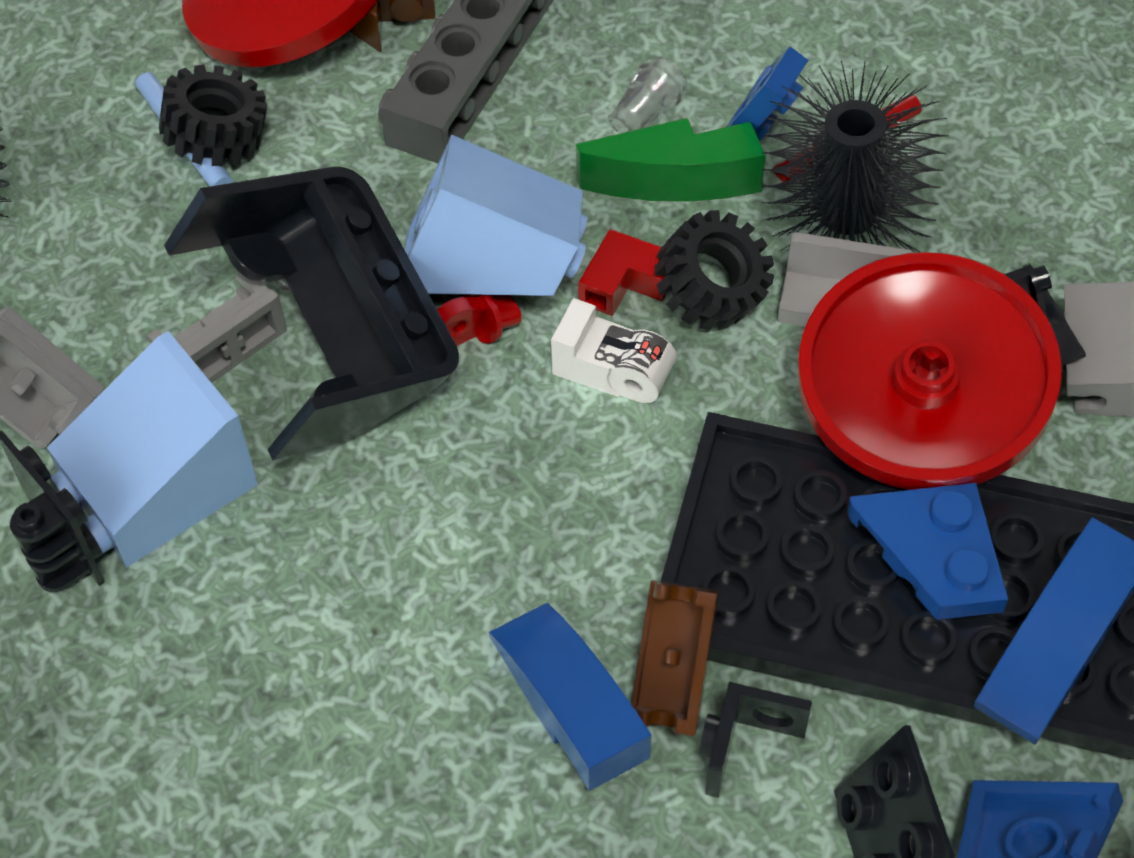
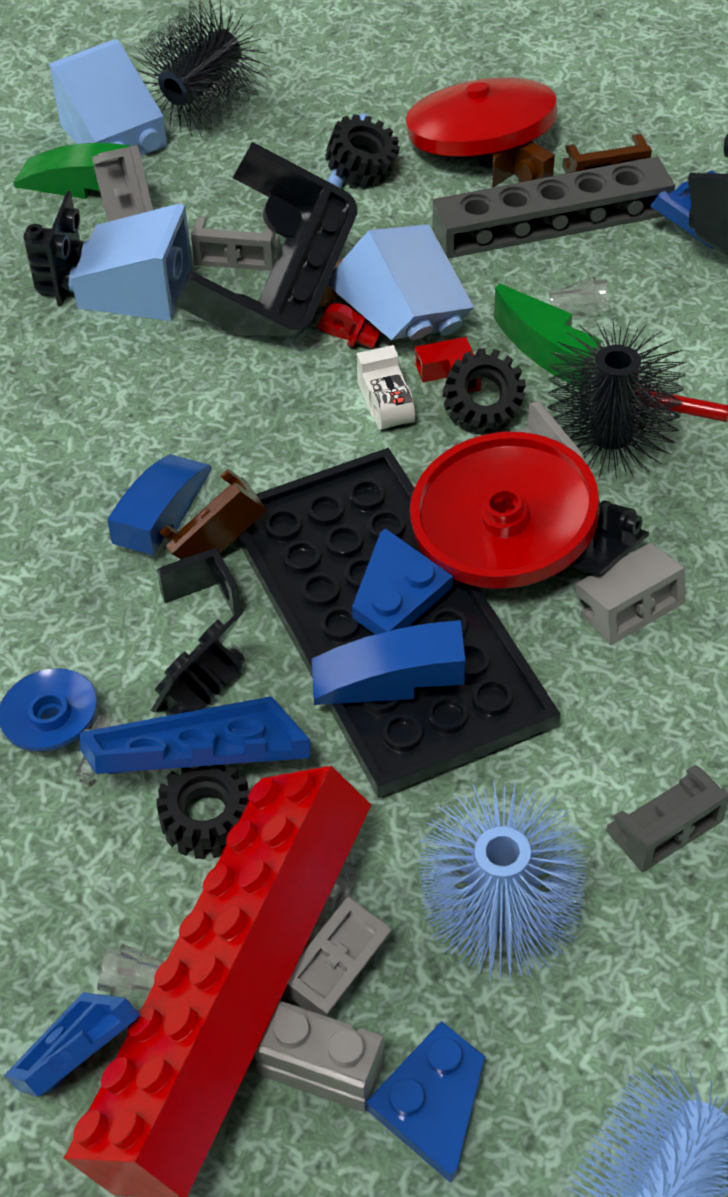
camera: 50 degrees right, 5 degrees down
(769, 88) = (639, 319): blue wing -> none

